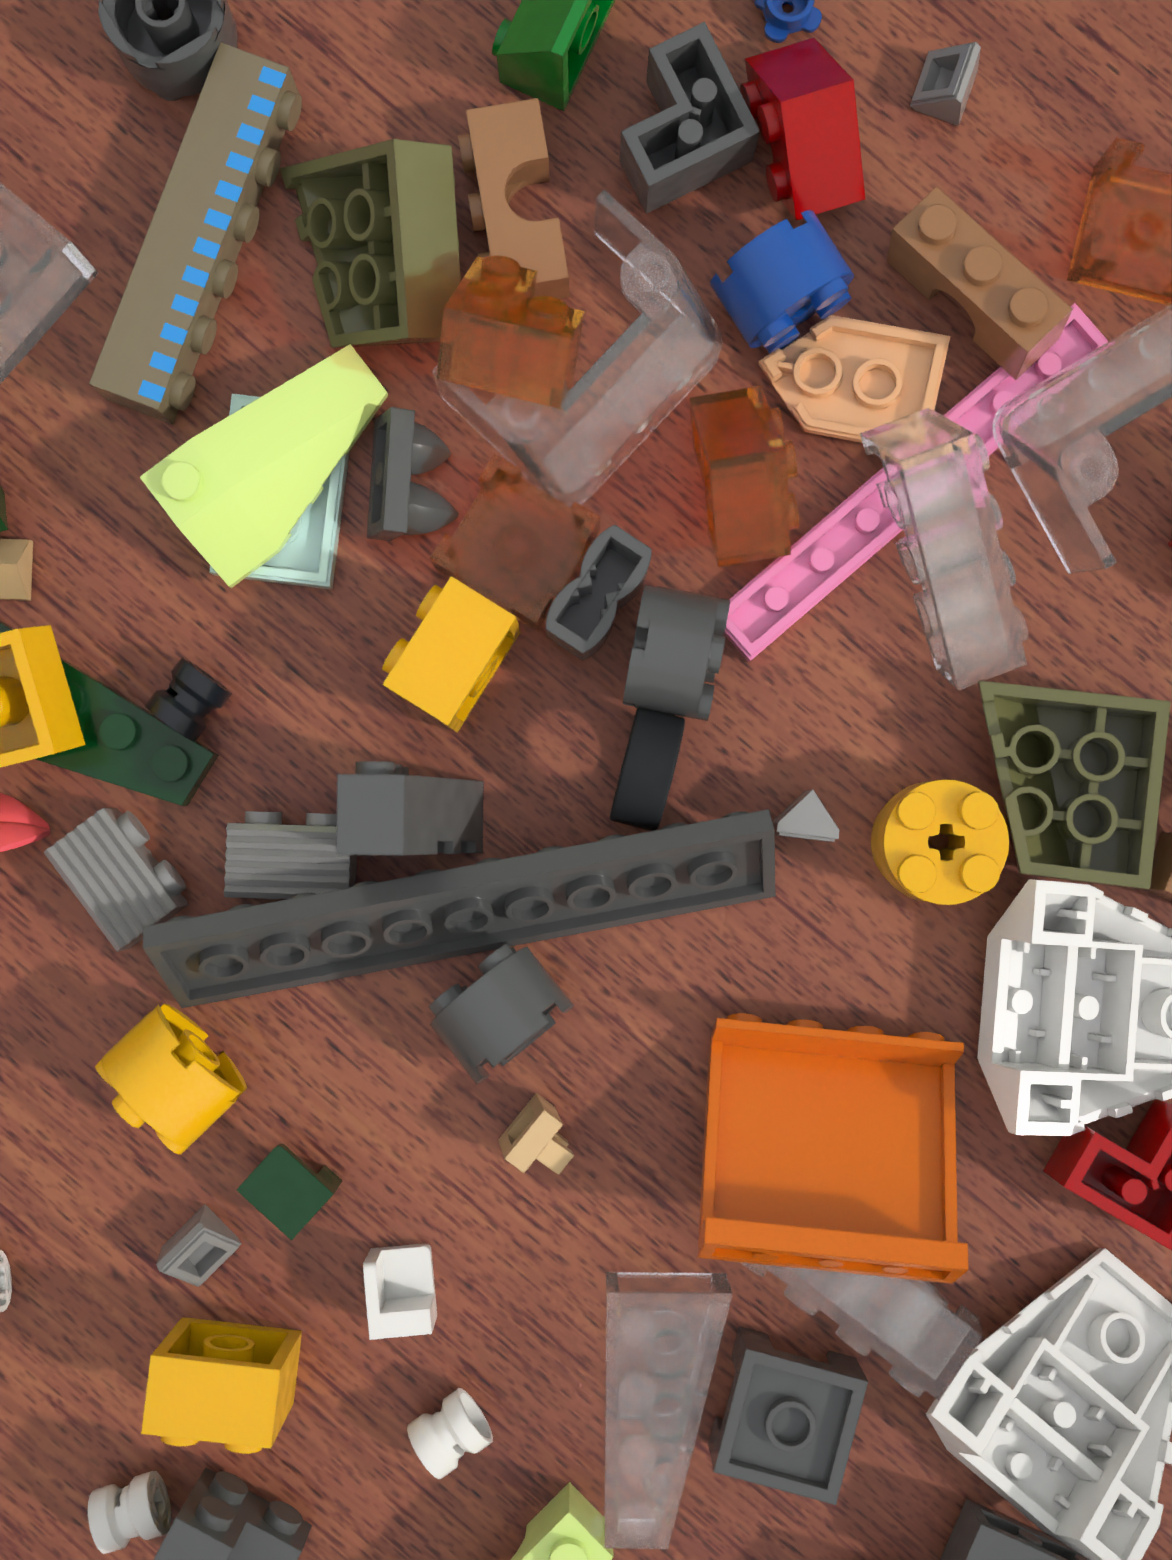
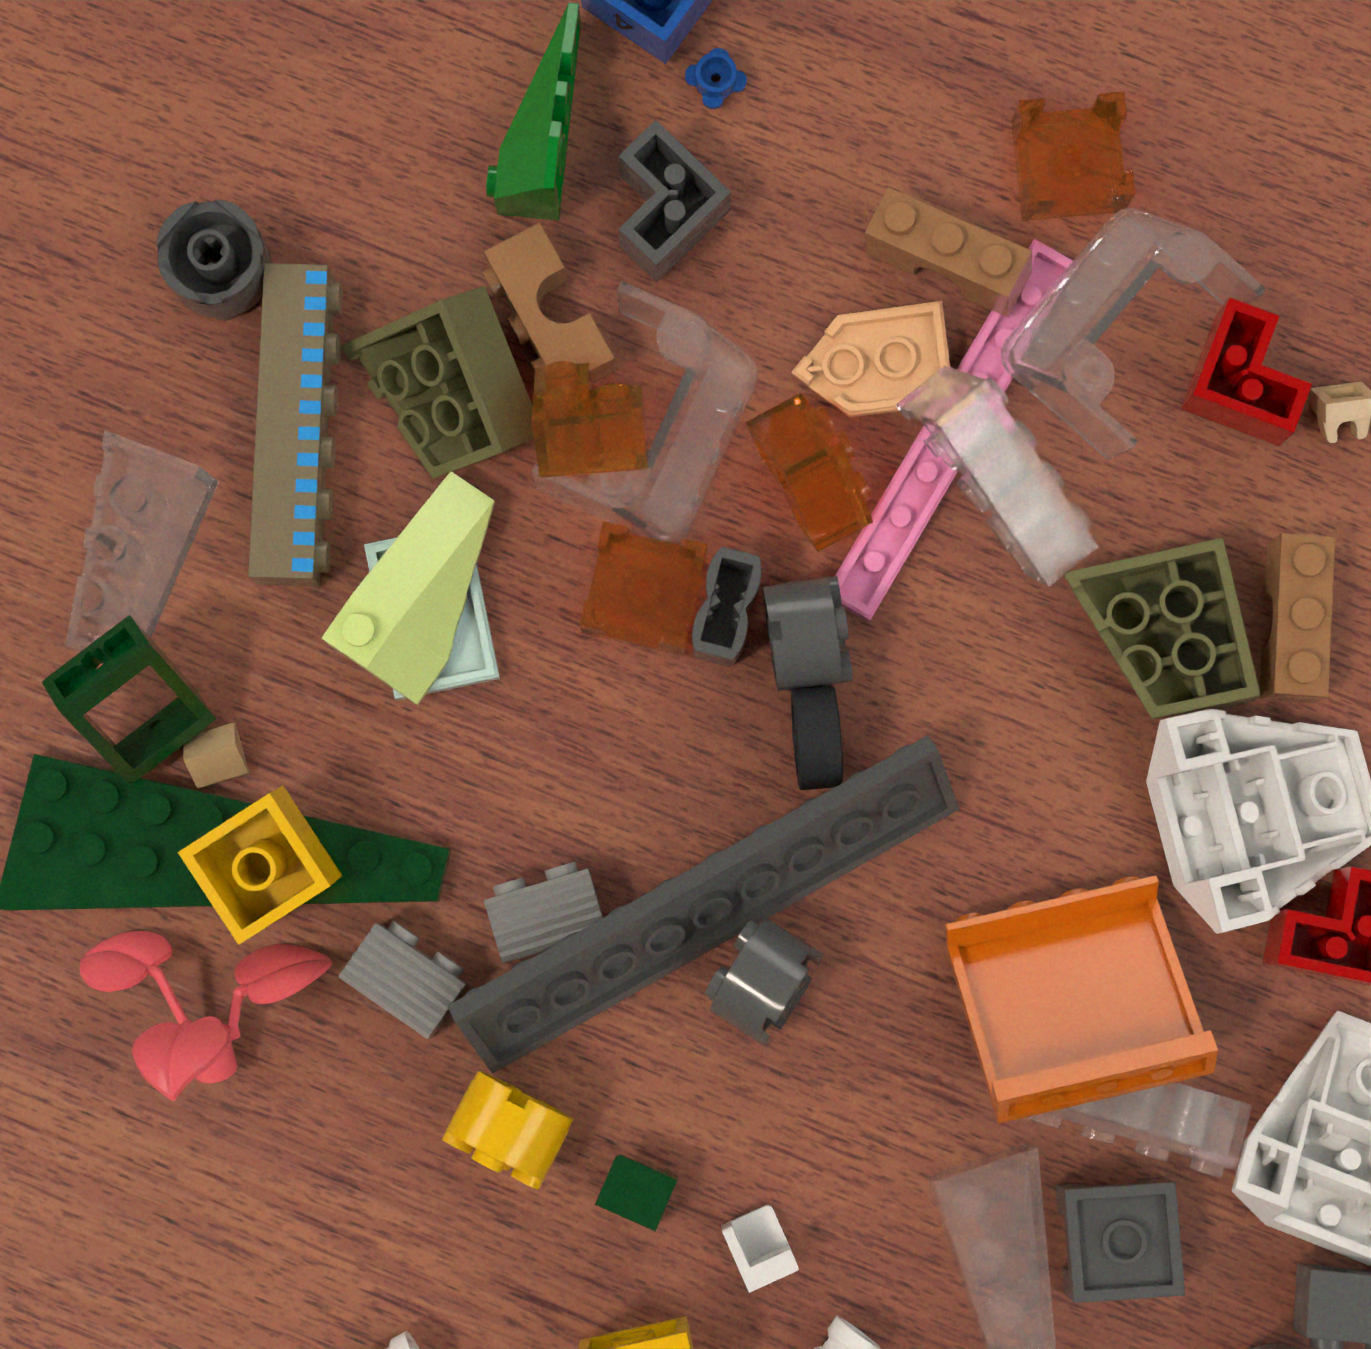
camera: 15 degrees left, 5 degrees down
(188, 699) = (413, 809): black wheel -> none
(198, 1248) = (575, 1272): light grey slope -> none
(395, 502) = (531, 588): dark grey tile -> none
(406, 814) = (634, 838): dark grey wedge -> none
(451, 652) = (624, 697): yellow brick -> none
(536, 1137) = (827, 1076): tan tile -> none
(784, 282) = (791, 304): blue brick -> none
(806, 820) = (963, 736): light grey slope -> none
(812, 125) = (767, 170): red brick -> none
(947, 82) = (866, 95): light grey slope -> none
(975, 846) = (1090, 688): yellow brick -> none

